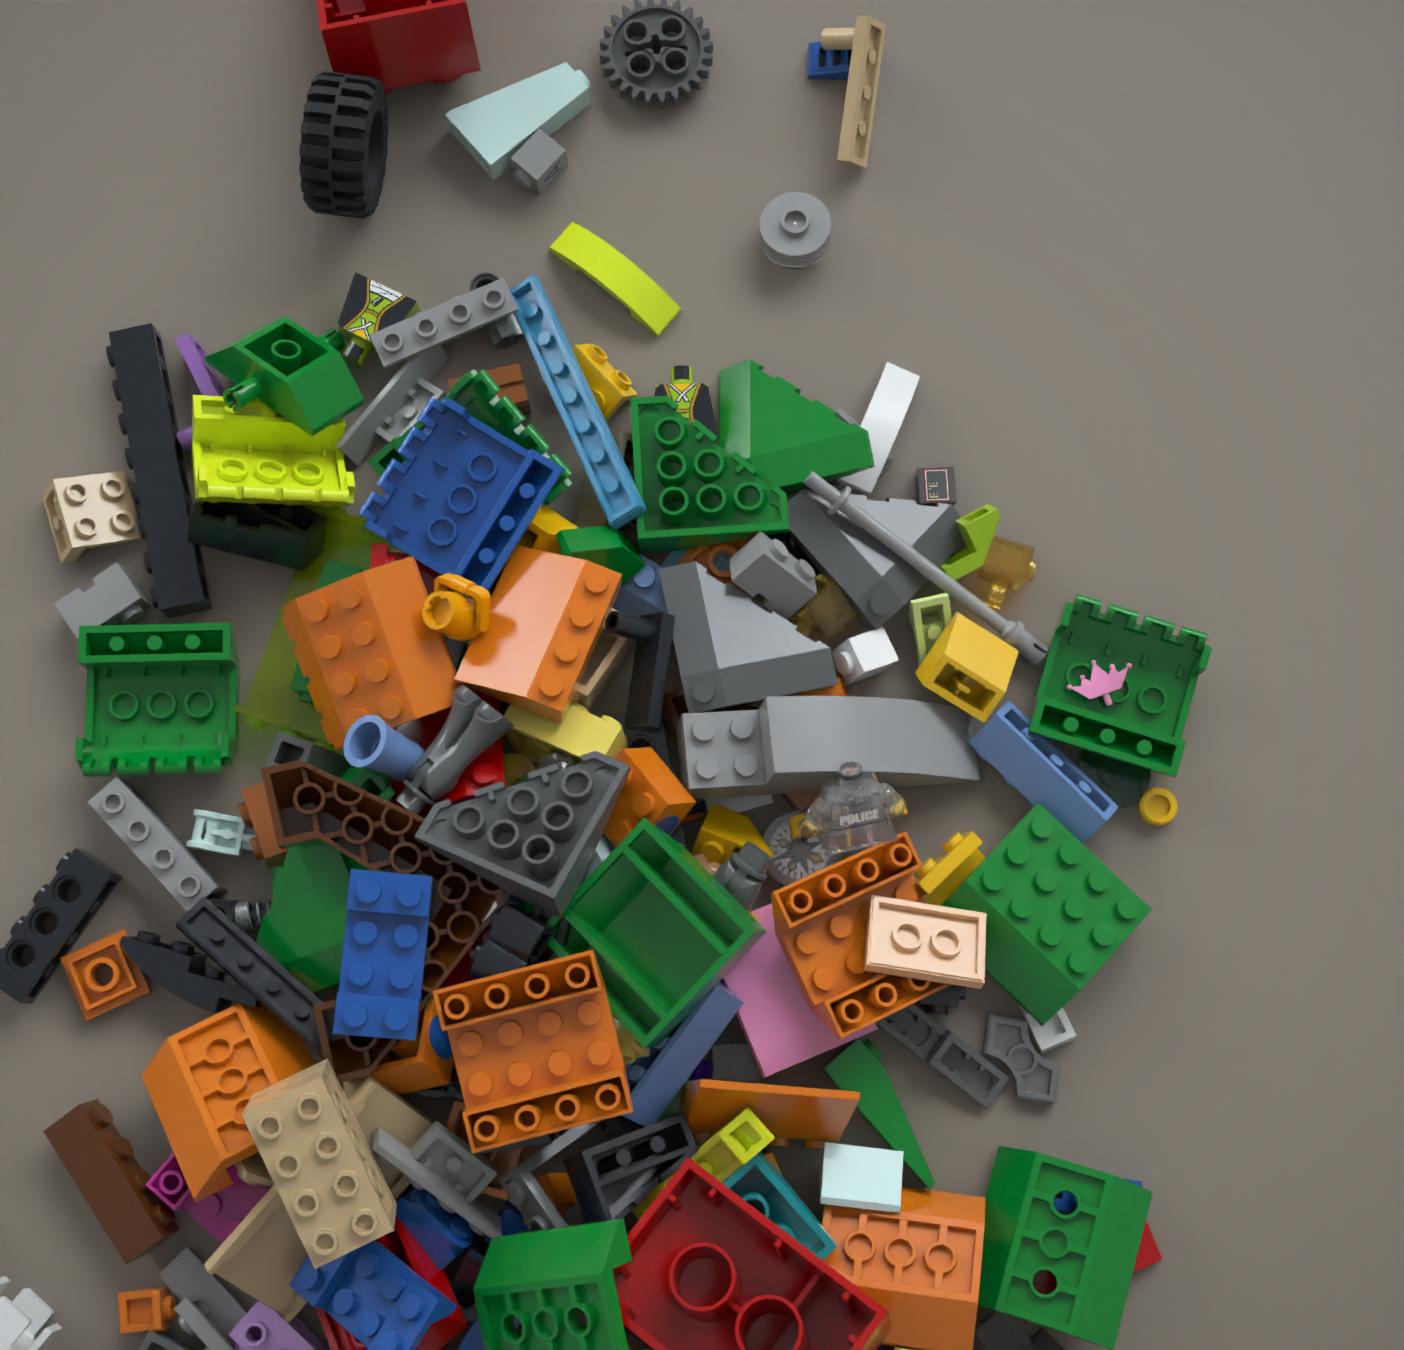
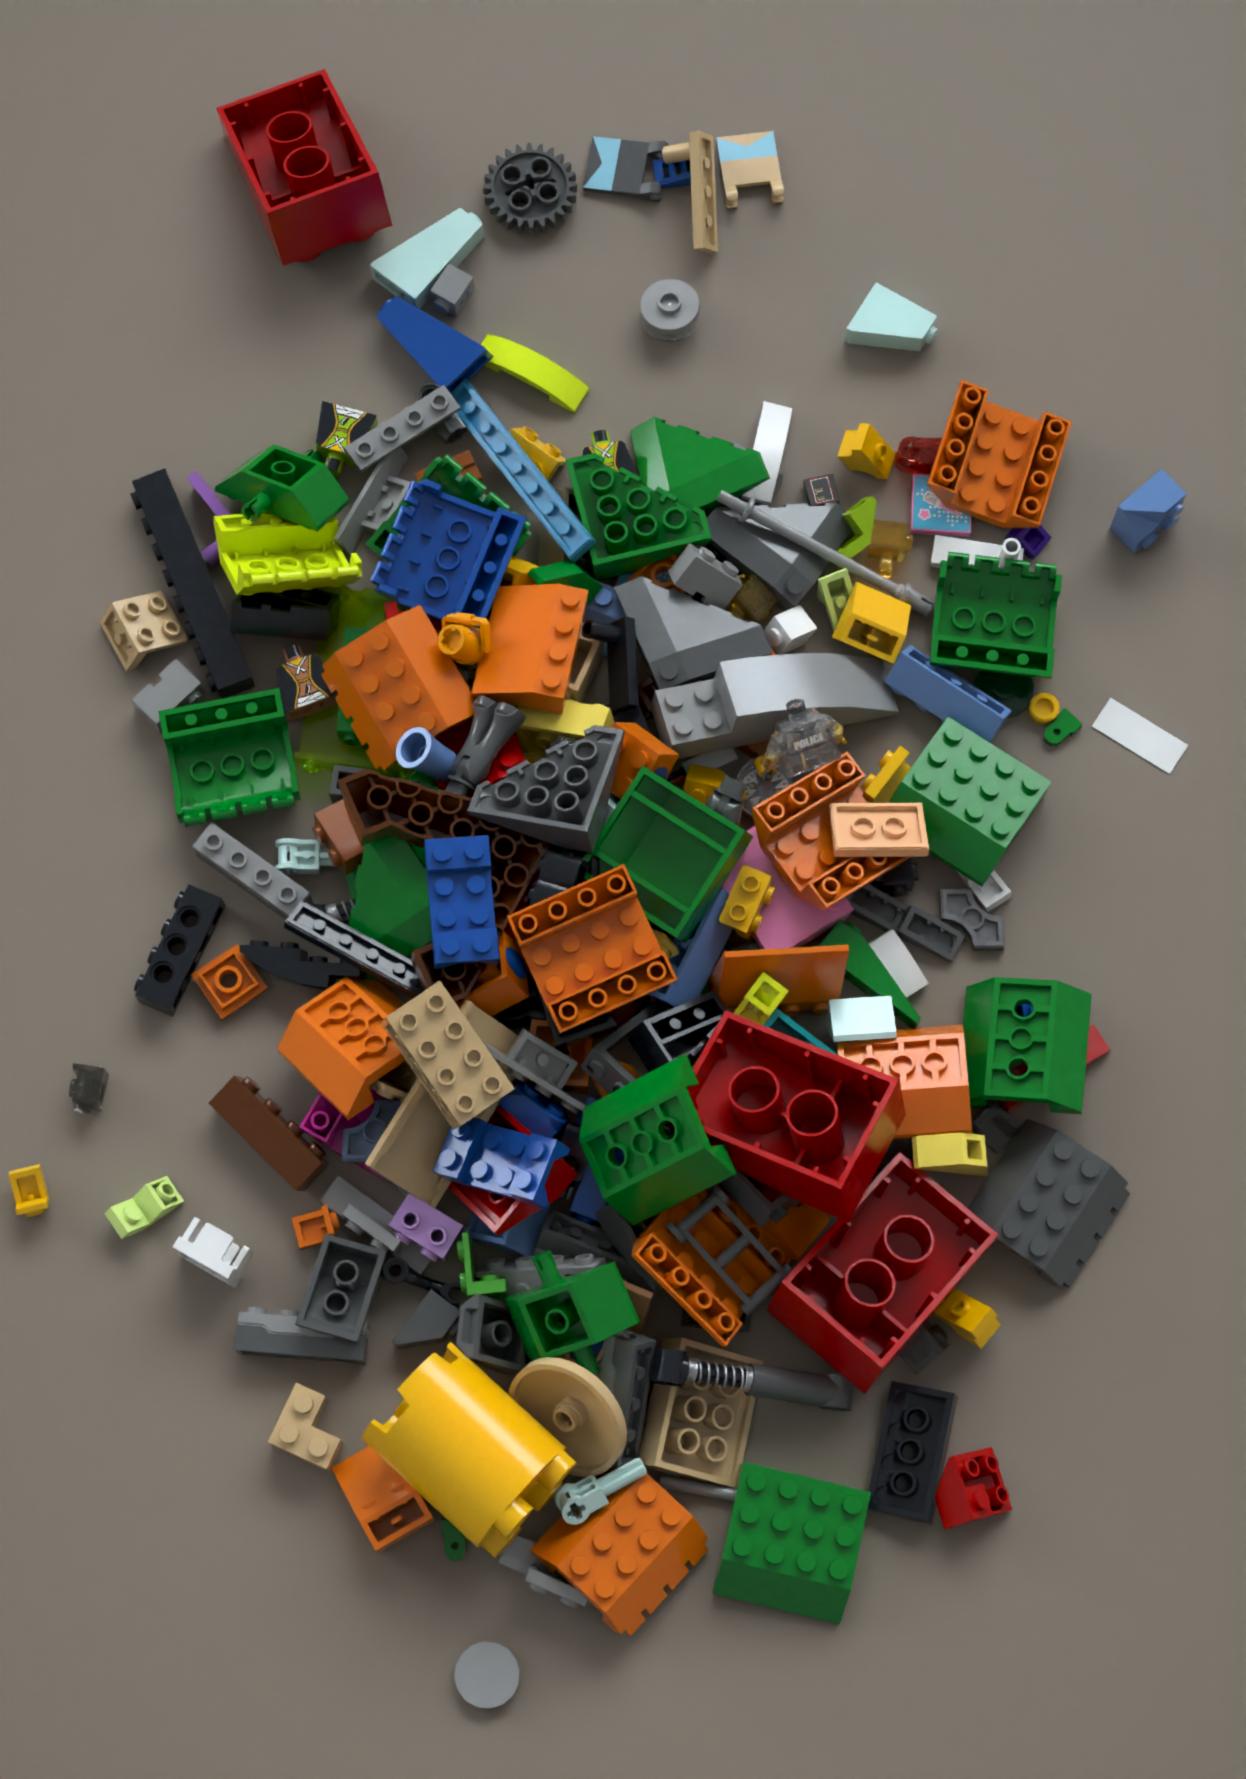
camera: 10 degrees left, 5 degrees down
(223, 1212) = (361, 1140): none -> sand blue tile
(258, 619) = (302, 685): none -> torso
(344, 144) = (297, 301): black tyre -> none
(503, 227) = (434, 345): none -> blue slope
(744, 1002) = (746, 900): none -> yellow bracket
(768, 45) = (620, 167): none -> dark grey flag
(919, 1101) = (899, 962): none -> white slope
(924, 64) = (749, 162): none -> tan flag
(999, 448) = (866, 452): none -> yellow brick
(1059, 290) = (891, 322): none -> light aqua slope
(1075, 464) = (921, 454): none -> clear red piece
(1075, 581) = (1010, 549): none -> white piece
(1078, 528) = (931, 516): none -> tile
(1101, 682) = (980, 618): bright pink piece -> none
(1158, 487) = (997, 460): none -> orange slope
(1176, 586) = (1030, 539): none -> dark purple slope
(1180, 830) = (1065, 724): none -> green piece
(1269, 861) = (1140, 735): none -> white sticker
(1338, 580) = (1148, 511): none -> medium blue slope

